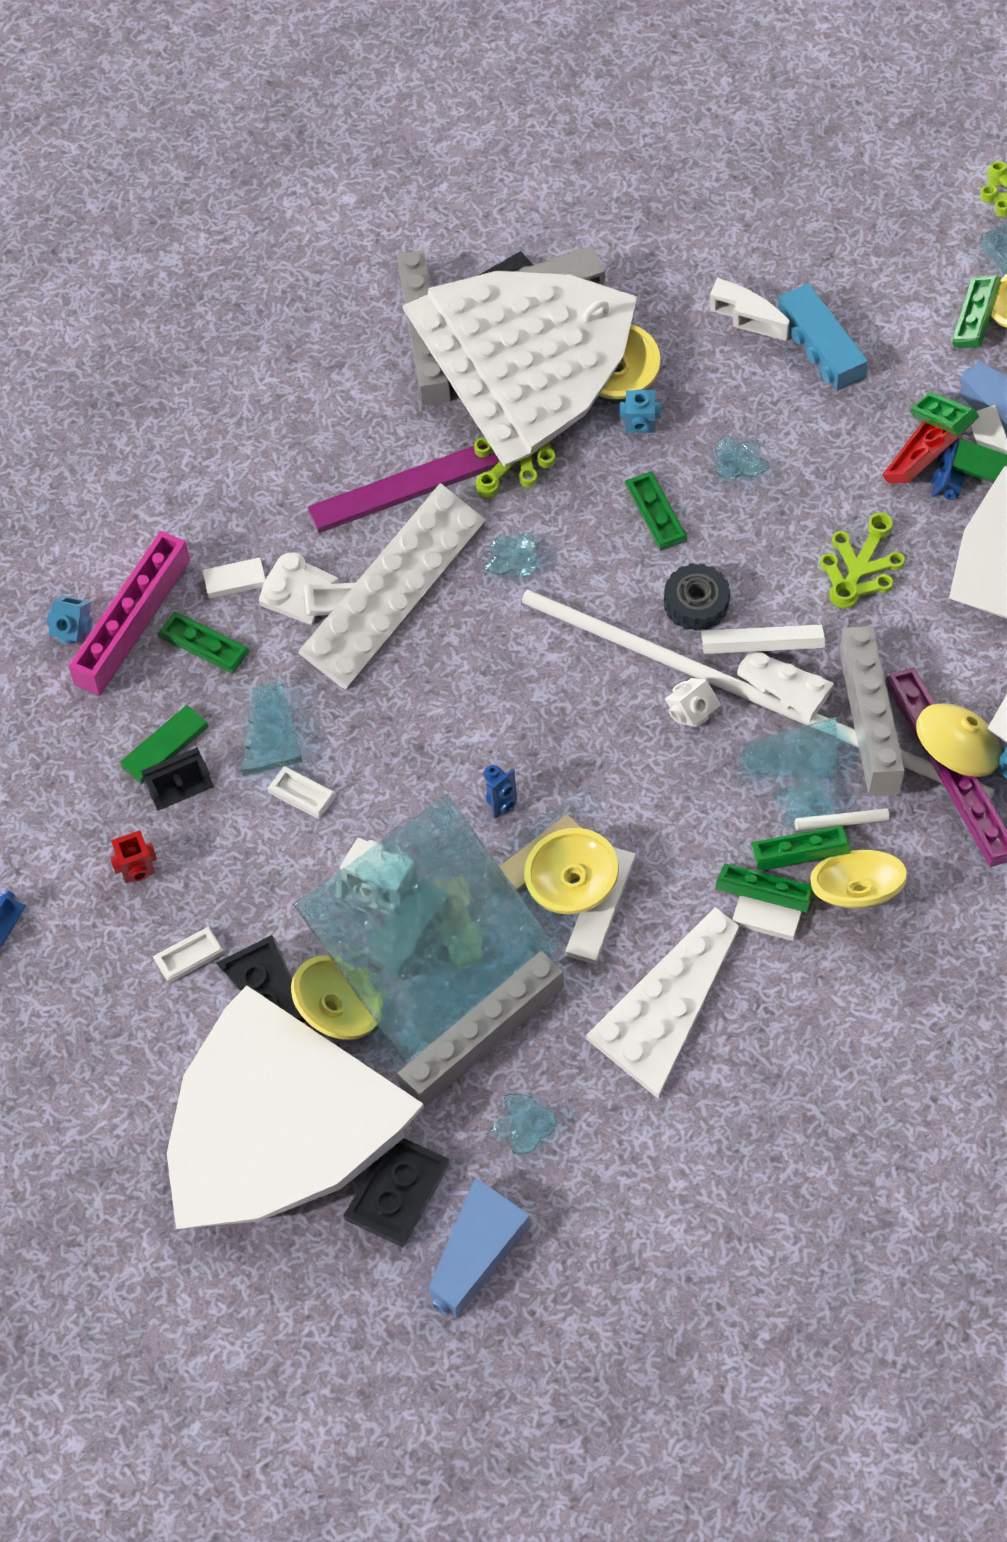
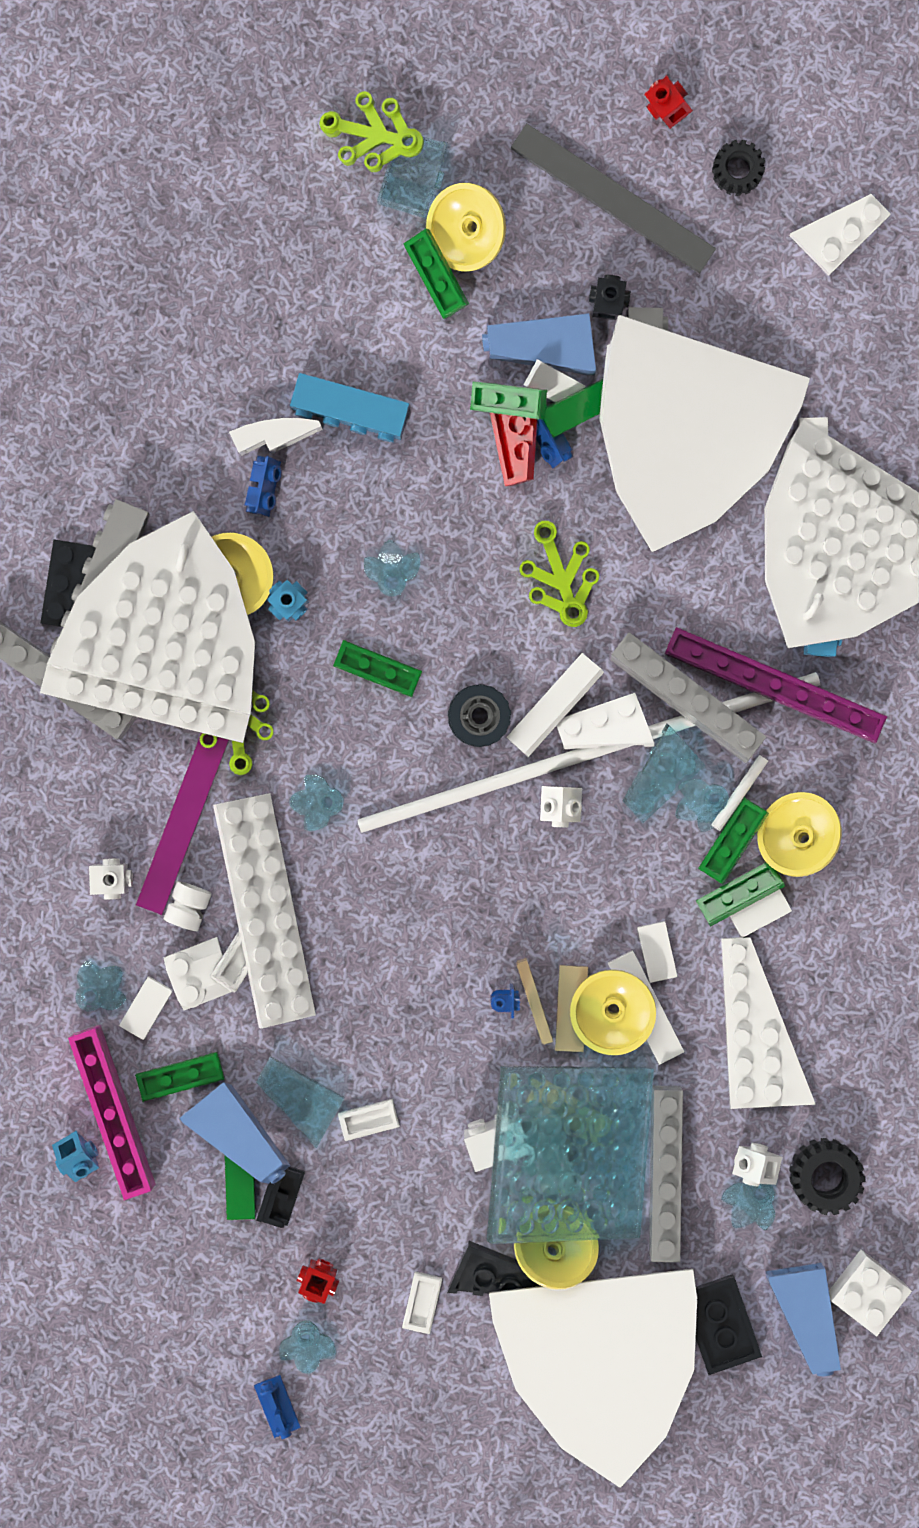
camera: 50 degrees left, 30 degrees up
(65, 907) = (307, 1351): none -> clear light blue plate
(199, 700) = (234, 1130): none -> medium blue slope
(221, 536) = (101, 983): none -> clear light blue plate
(309, 470) = (100, 880): none -> white brick
(342, 534) = (187, 906): none -> white wheel
(519, 818) = (534, 1001): none -> tan tile
(545, 1276) = (869, 1292): none -> white brick
(560, 1088) = (757, 1165): none -> white brick
(613, 1175) = (810, 1159): none -> black tyre
(653, 873) = (657, 951): none -> white tile
(705, 337) = (267, 473): none -> blue hinge
(959, 739) = (759, 673): light yellow dish -> none

